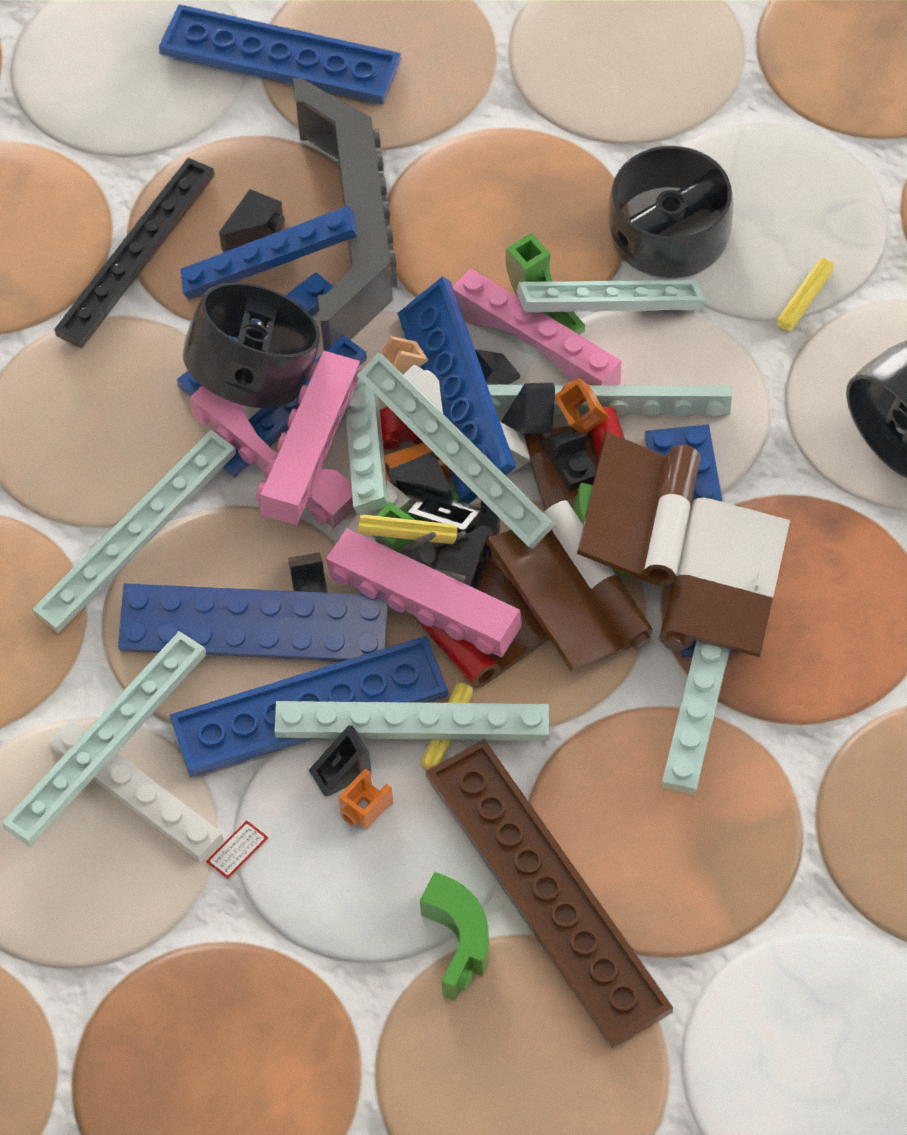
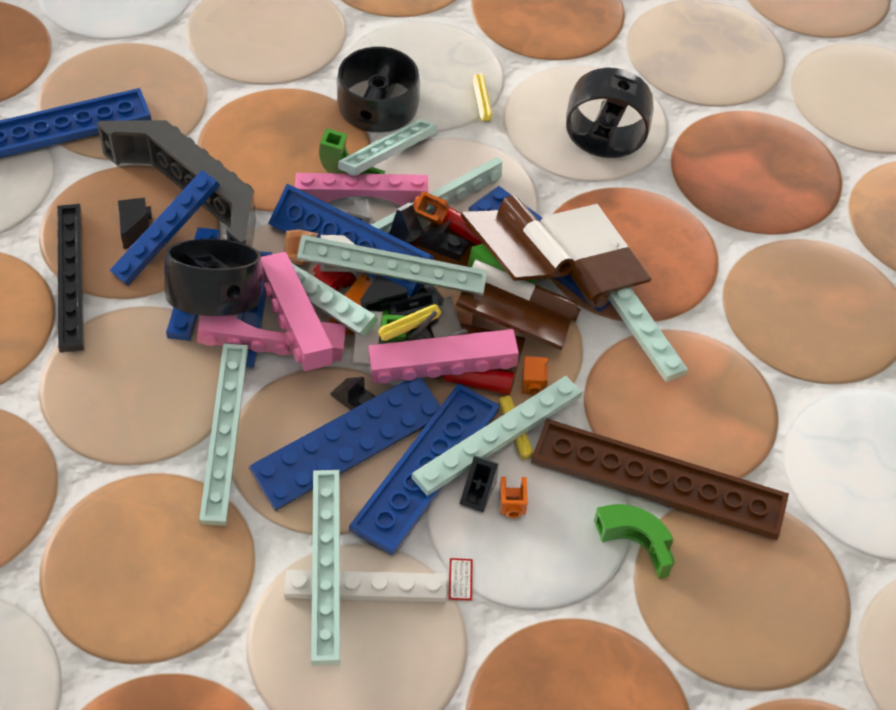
camera: 45 degrees left, 5 degrees down
(521, 681) = (534, 375): none -> orange window

